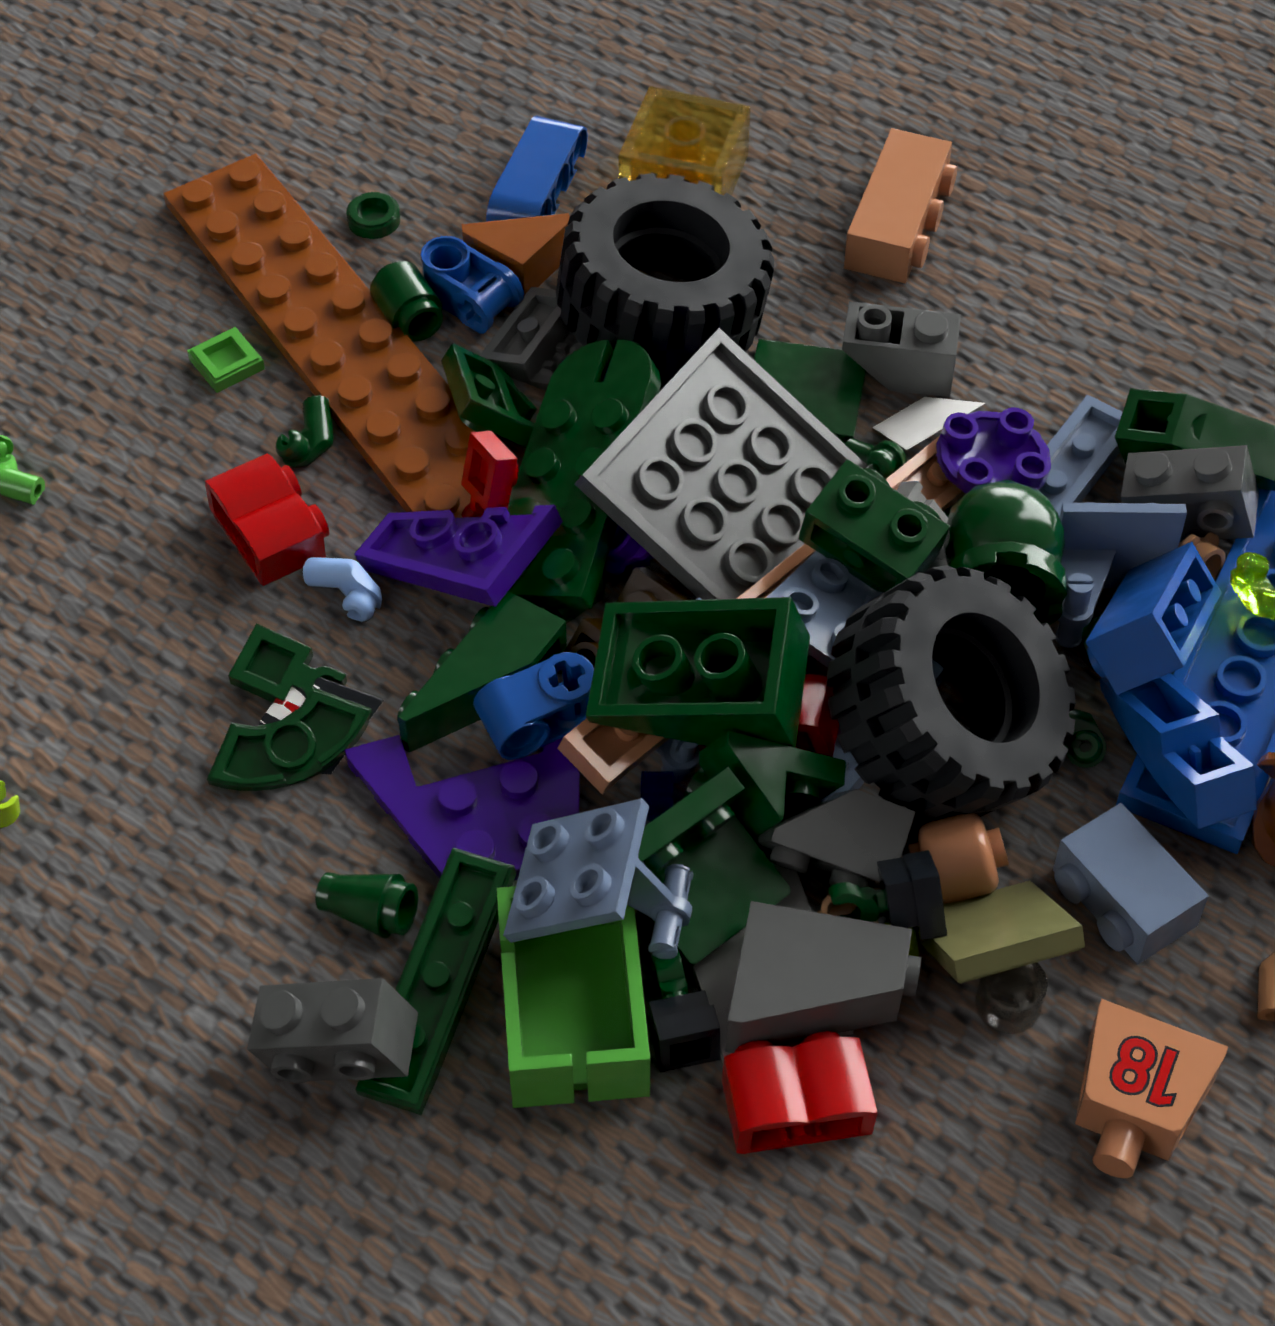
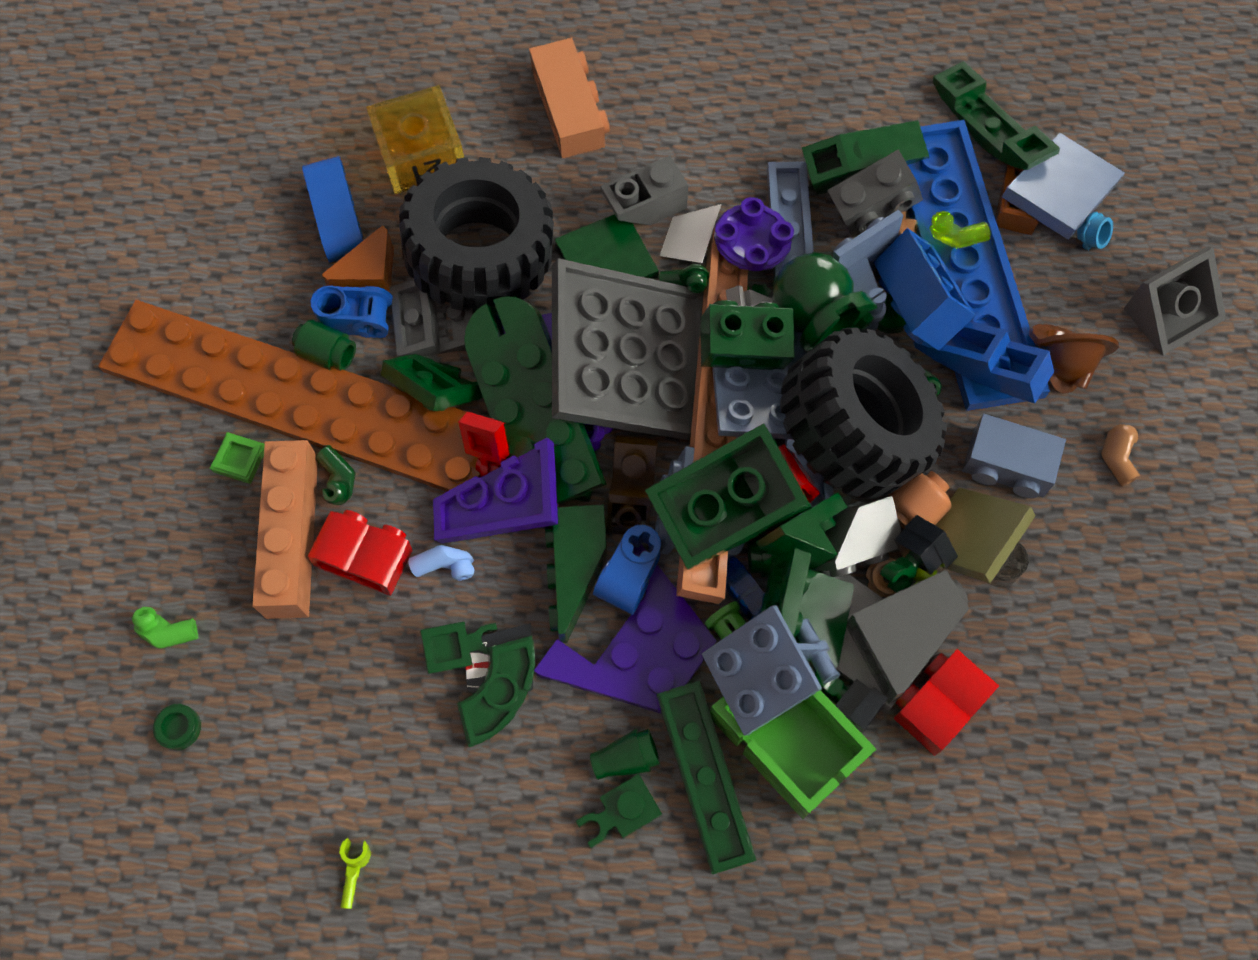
camera: 35 degrees left, 15 degrees up
(221, 430) = (285, 530): none -> nougat brick
(317, 956) = (627, 809): none -> dark green plate
(333, 1030) = (683, 857): dark grey brick -> none
(373, 215) = (248, 296): dark green tile -> none
(1142, 1086) = (1106, 571): nougat torso -> none

